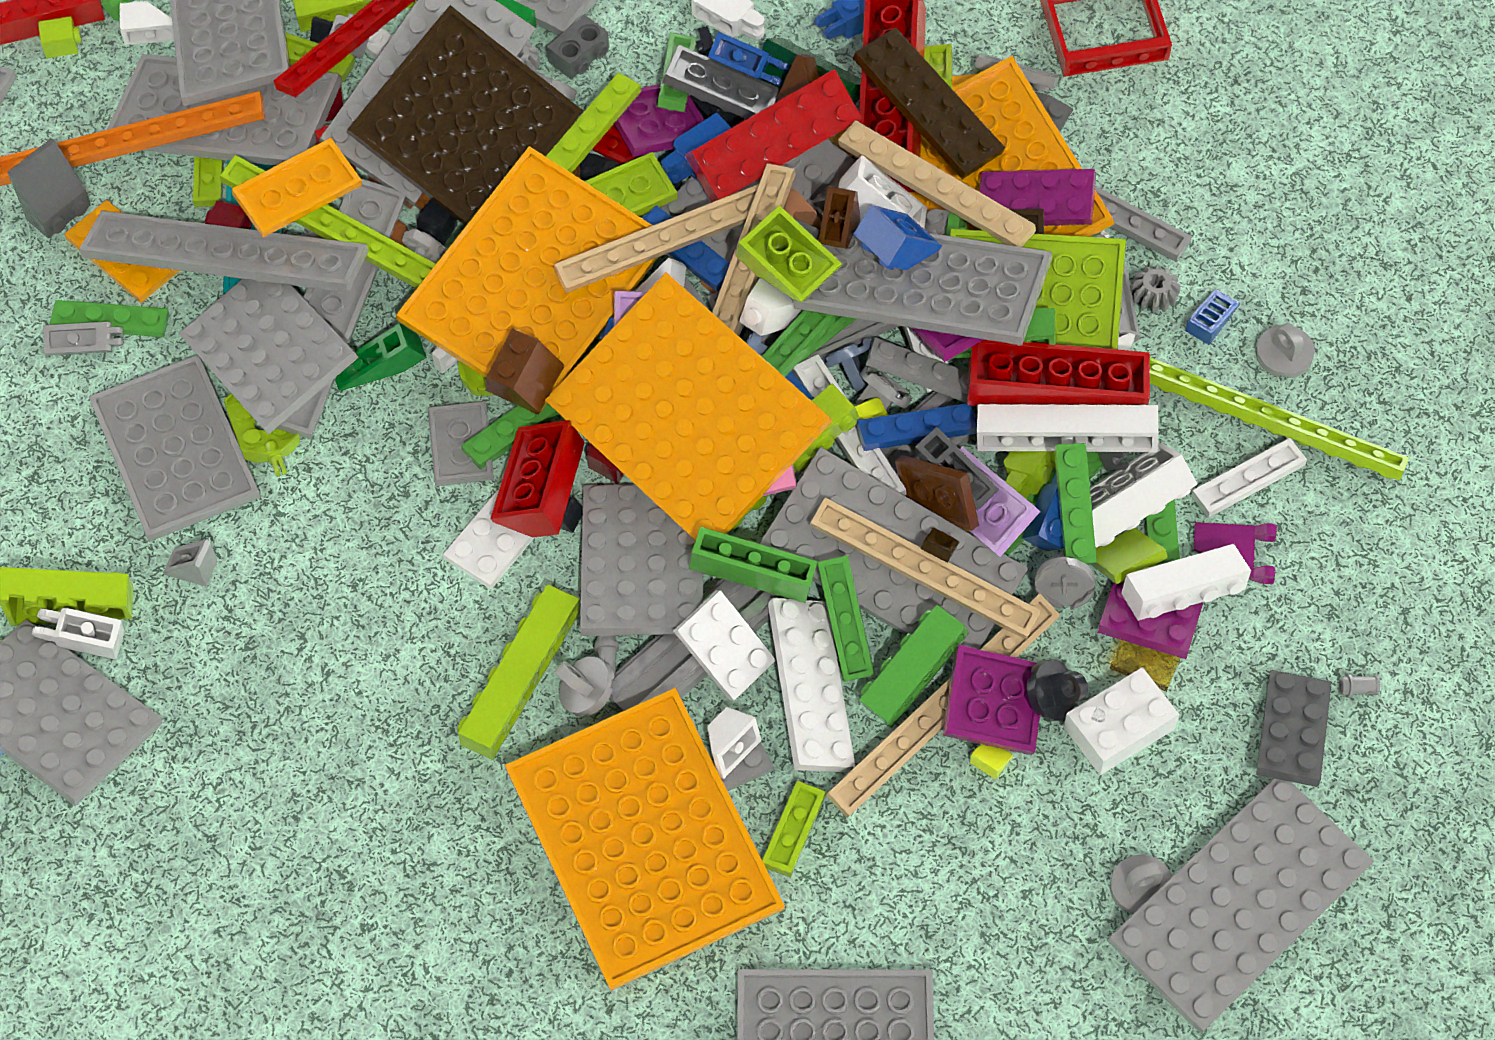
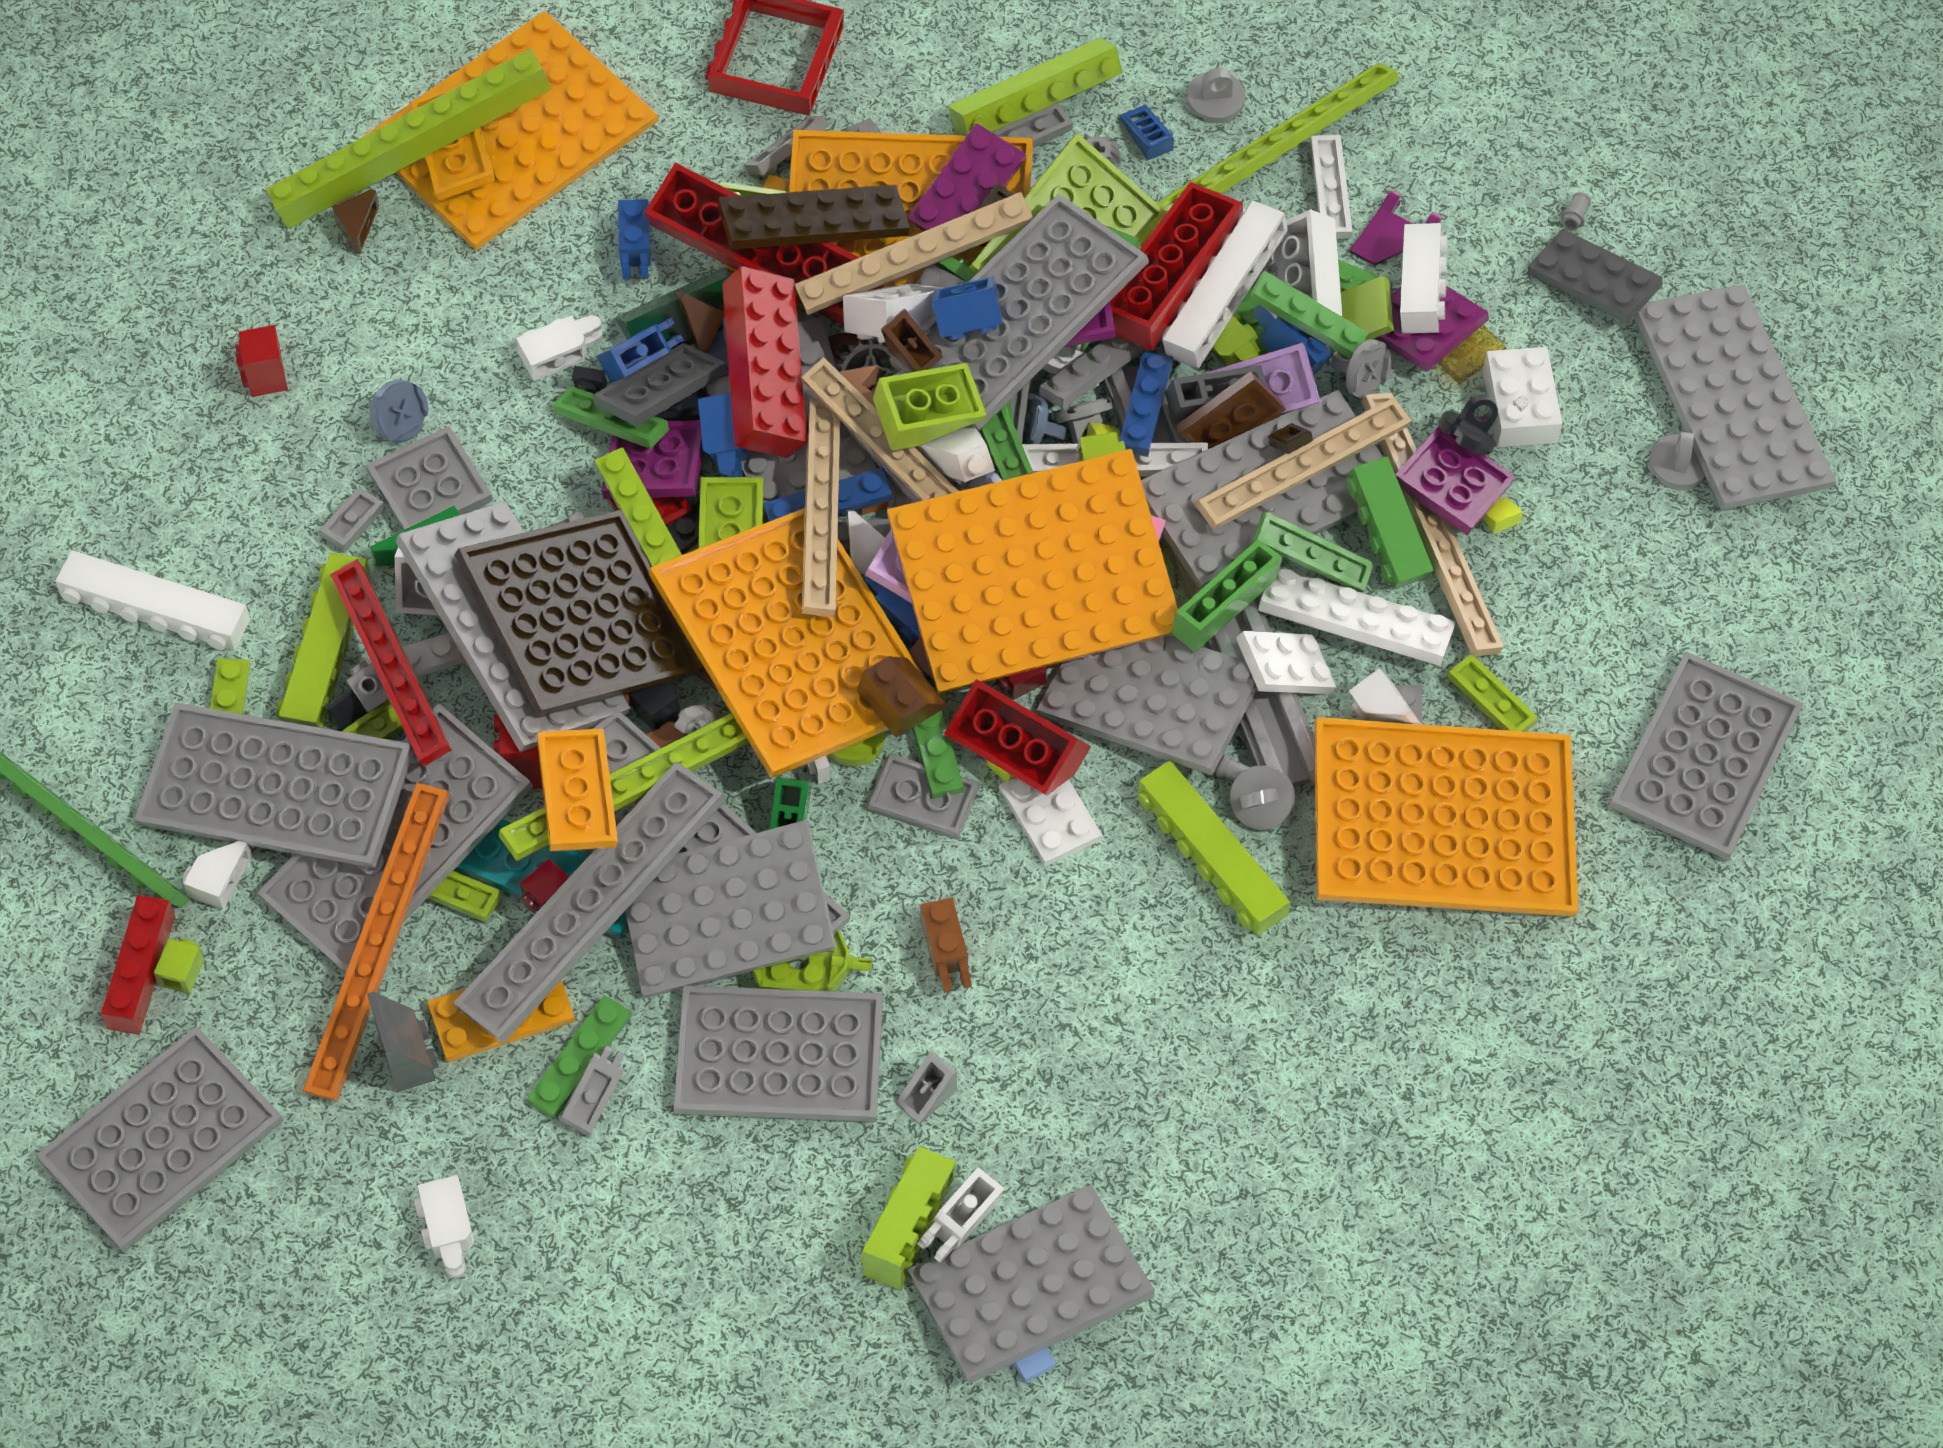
camera: 65 degrees left, 0 degrees up
(324, 515) = (945, 942): none -> dark orange hinge
(578, 47) = (519, 490): dark grey brick -> none
(1191, 213) = (1037, 87): none -> lime brick

